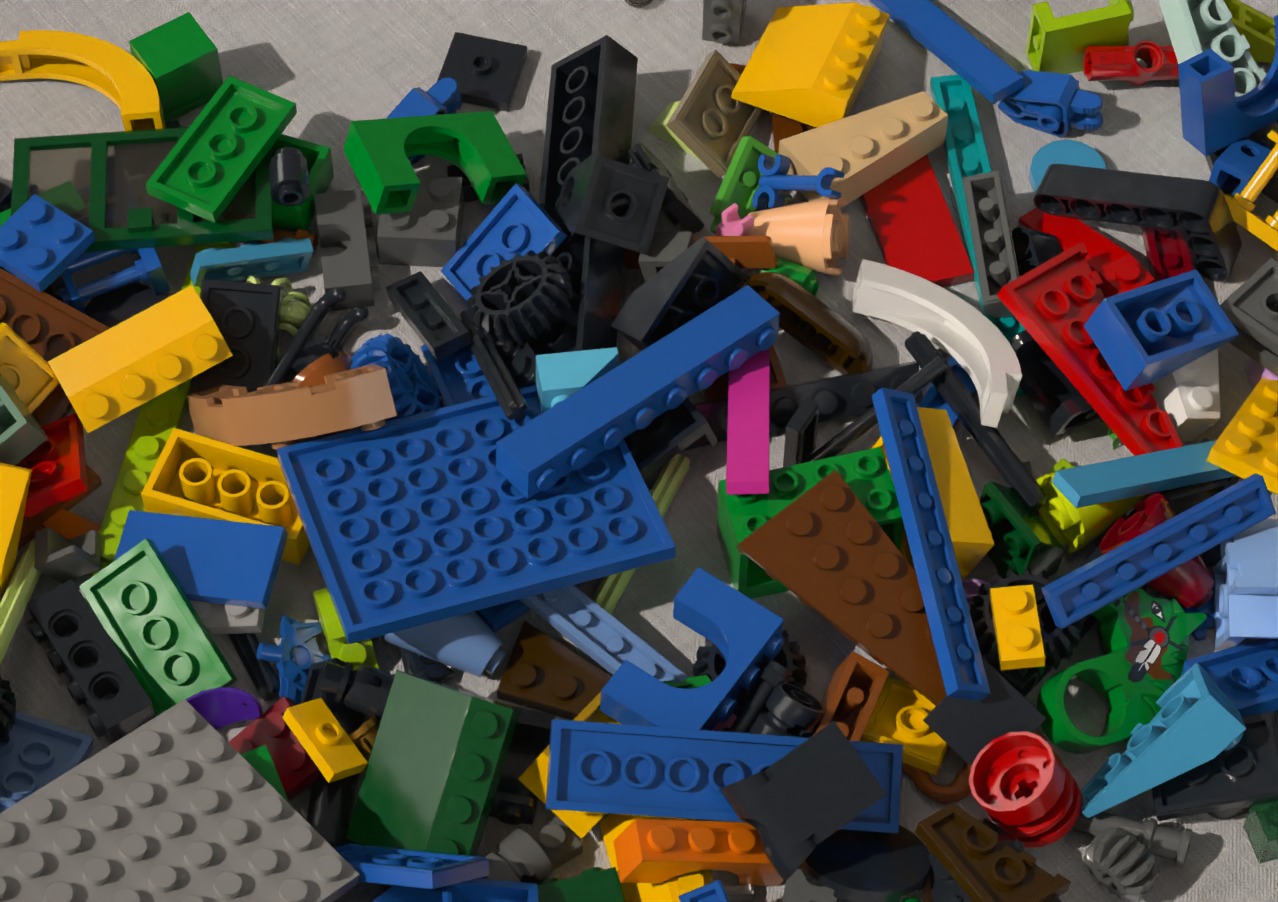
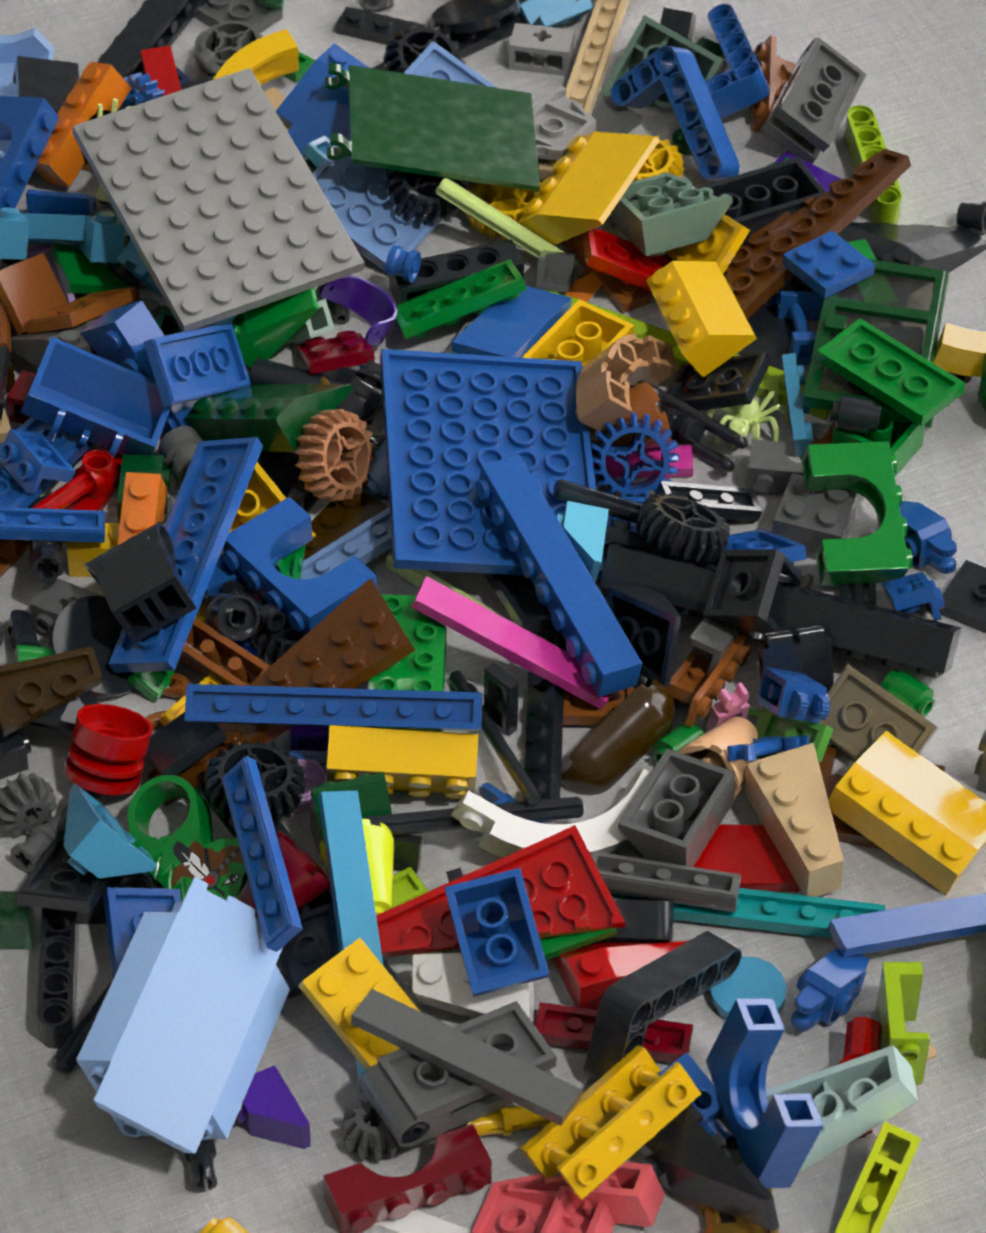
camera: 105 degrees right, 10 degrees down
(122, 697) = (403, 263): none -> blue wheel
(324, 740) = (325, 360): yellow plate -> none
(496, 676) = (335, 455): none -> nougat gear
(525, 105) = (911, 592): none -> blue bracket
(650, 104) = (909, 691): none -> green brick
(722, 166) = (793, 695): none -> blue hinge
(903, 236) = (678, 809): none -> dark grey slope
(1017, 627) = (226, 749): yellow plate -> none

